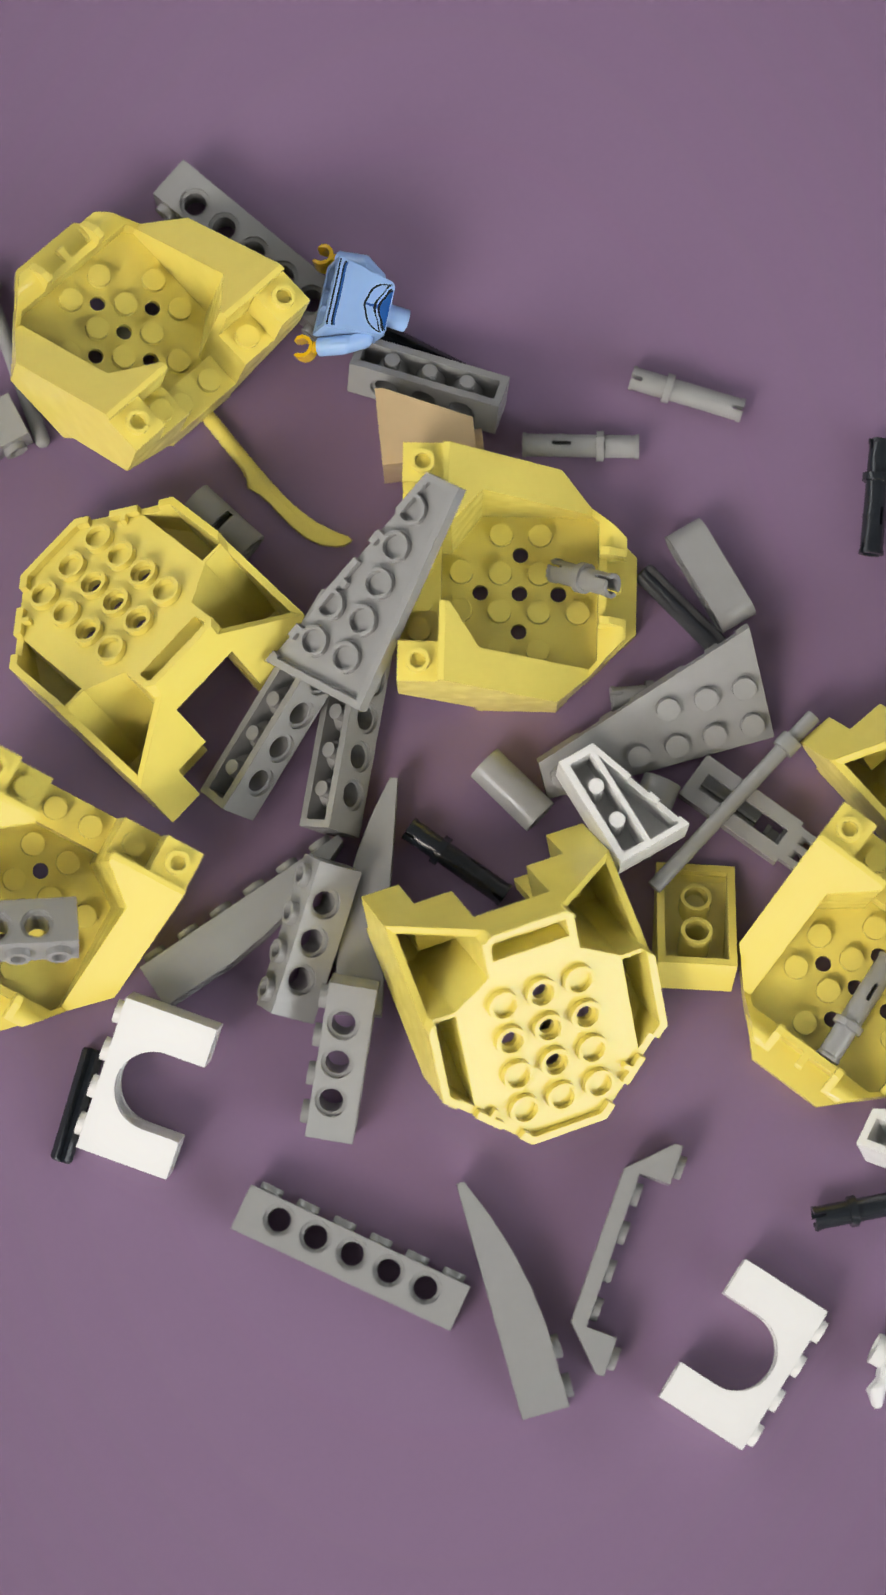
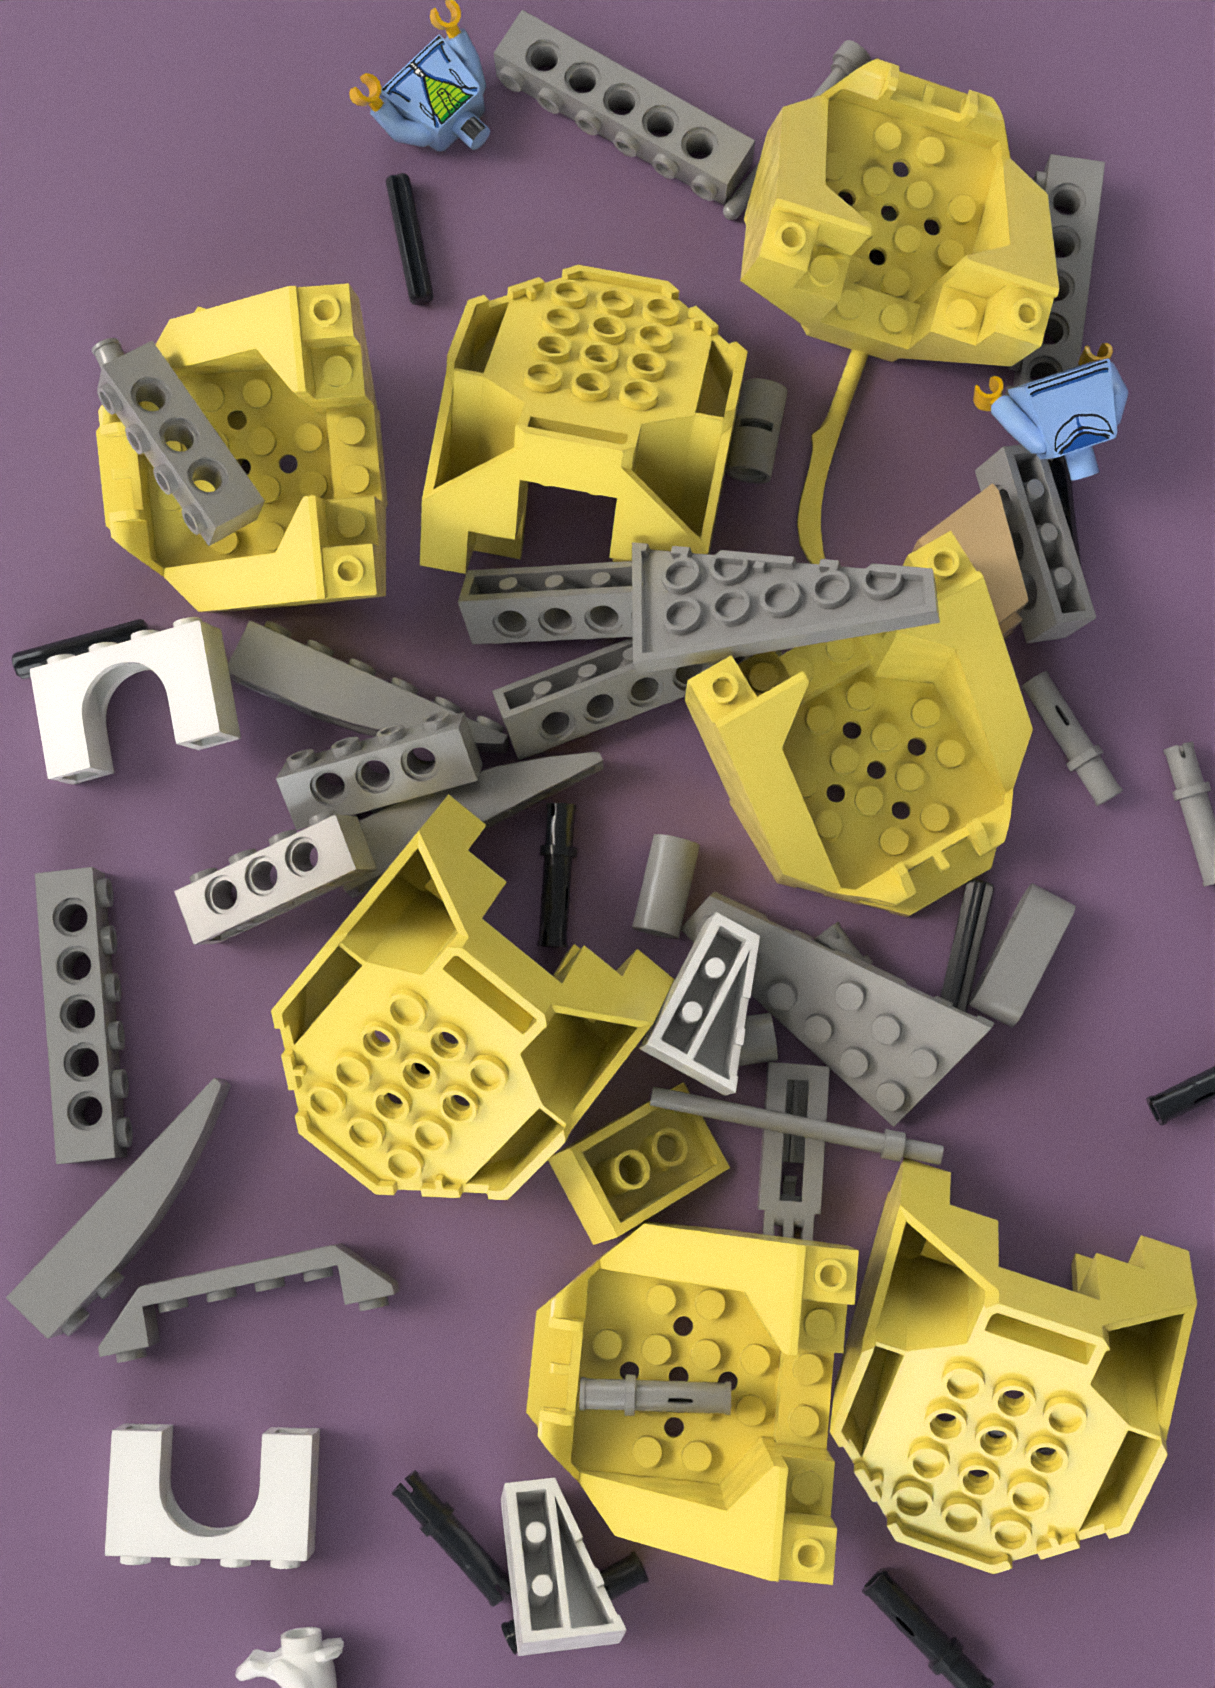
camera: 60 degrees right, 0 degrees up
(583, 578) = (932, 822): light grey pin -> none

